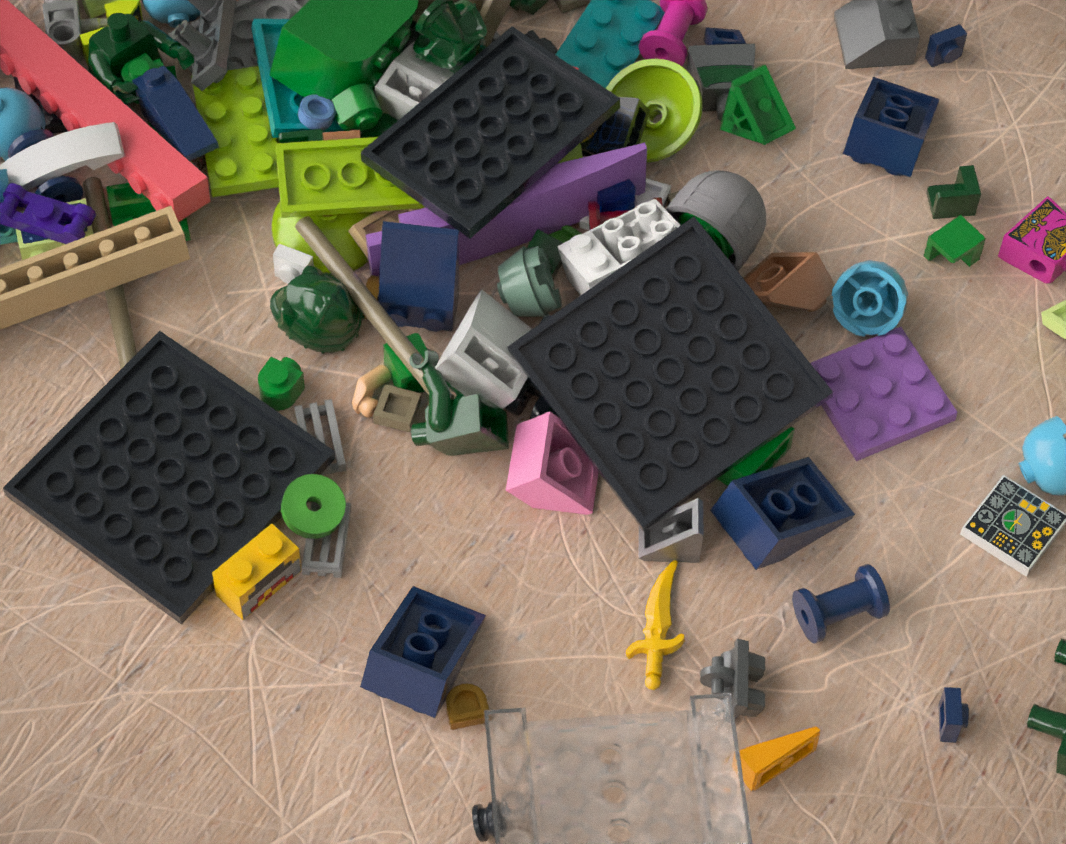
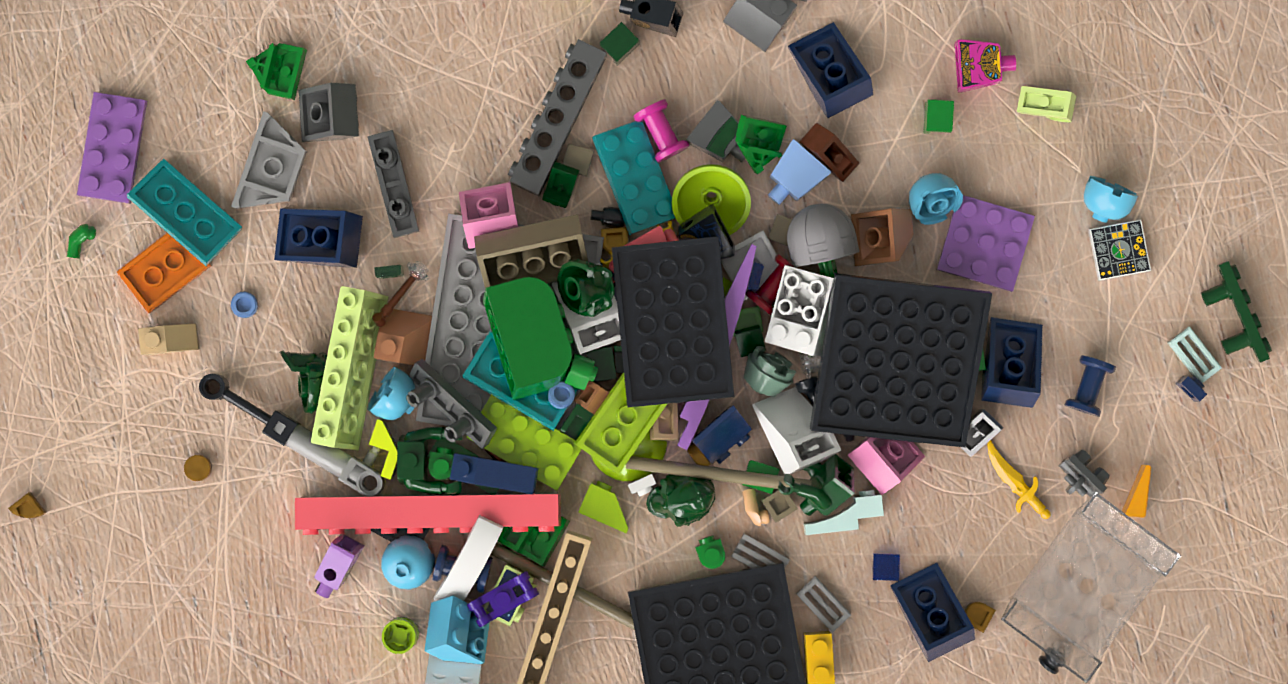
camera: 45 degrees left, 30 degrees up
(234, 249) = (603, 506): none -> lime slope
(313, 489) = (818, 606): bright green piece -> none
(429, 567) = (886, 567): none -> clear blue tile
(445, 481) = (864, 506): none -> light aqua slope
(722, 36) = (693, 108): dark blue plate -> none
(765, 163) = (796, 173): none -> light blue torso
(812, 182) = (829, 151): none -> copper slope
(956, 198) = (903, 81): dark green panel -> none
(986, 724) = (1180, 338): none -> light aqua tile

